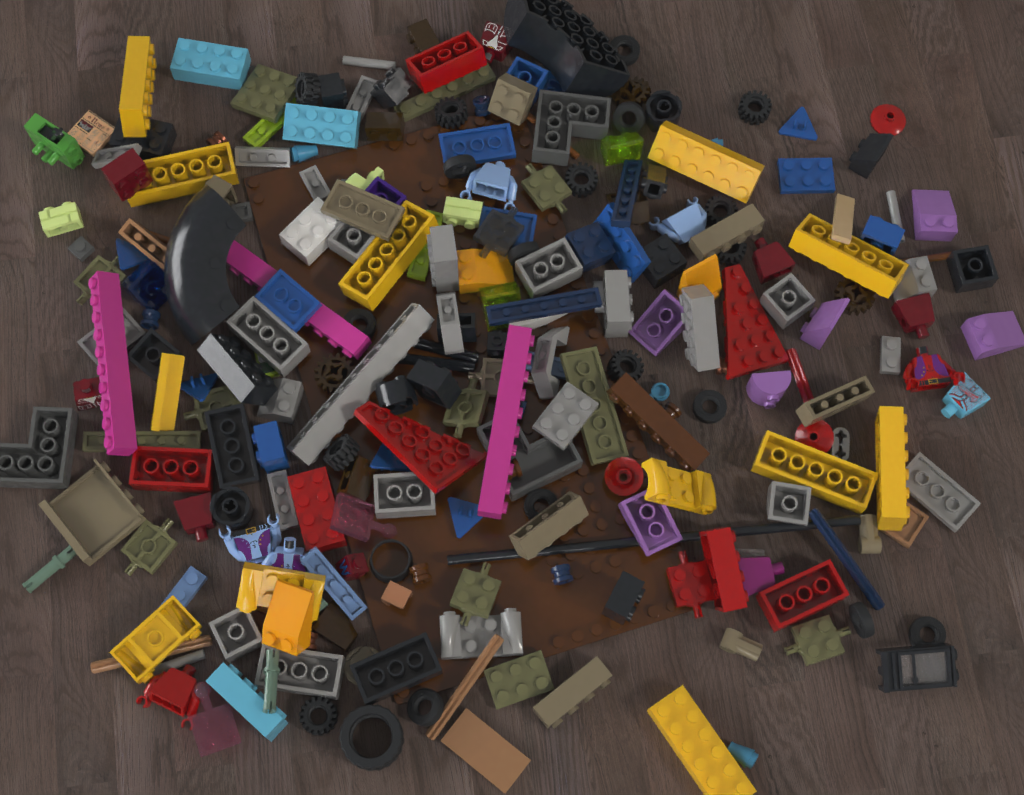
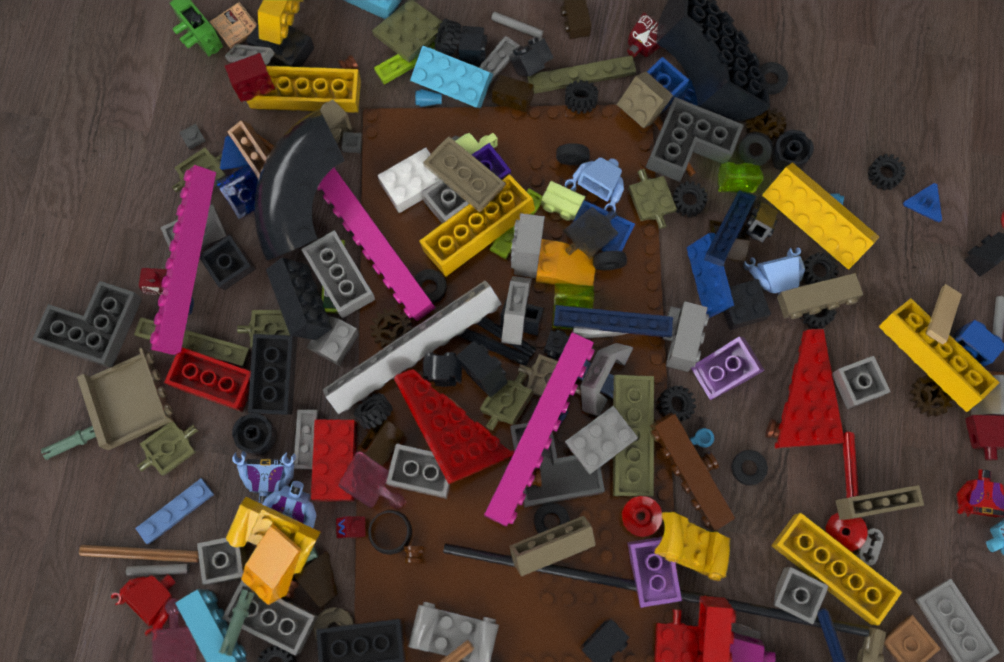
camera: 20 degrees right, 5 degrees up
(61, 219) = (181, 102): yellowish green brick -> none
(150, 319) = (234, 224): dark blue wheel -> none
(156, 639) = (145, 544): yellow piece -> none
(167, 392) = (227, 302): yellow panel -> none
(196, 515) = (218, 430): dark red torso -> none
(199, 387) = (259, 303): blue piece -> none
(262, 156) = (387, 92): light grey plate -> none
(271, 447) = (308, 384): blue brick -> none
(288, 300) = (366, 245): blue plate -> none
(315, 183) = (428, 132): light grey plate -> none
(334, 583) = (328, 539): medium blue plate -> none
(387, 460) = (411, 432): blue piece -> none
(396, 595) = (383, 570): nougat panel -> none
(446, 62) = (591, 44): red brick -> none
(463, 515) = (473, 506): blue piece -> none
(475, 593) = (460, 591): olive plate -> none
(481, 105) = (613, 97): dark blue wheel -> none
(482, 143) = (601, 136): blue plate -> none
(548, 268) = (630, 282): light grey brick -> none
(562, 574) = (551, 597): dark blue wheel -> none
(591, 246) = (675, 271): dark blue brick -> none
(700, 327) = (763, 388): light grey brick -> none
(705, 273) = (777, 341): light orange slope -> none
(768, 387) = (815, 468): medium lavender brick -> none
(771, 260) = (856, 335): dark red torso -> none
(805, 175) = (918, 256): blue plate -> none
(823, 322) = (892, 416): medium lavender slope -> none
(890, 355) = (950, 467): light grey plate -> none
(890, 464) = (917, 585): yellow brick -> none

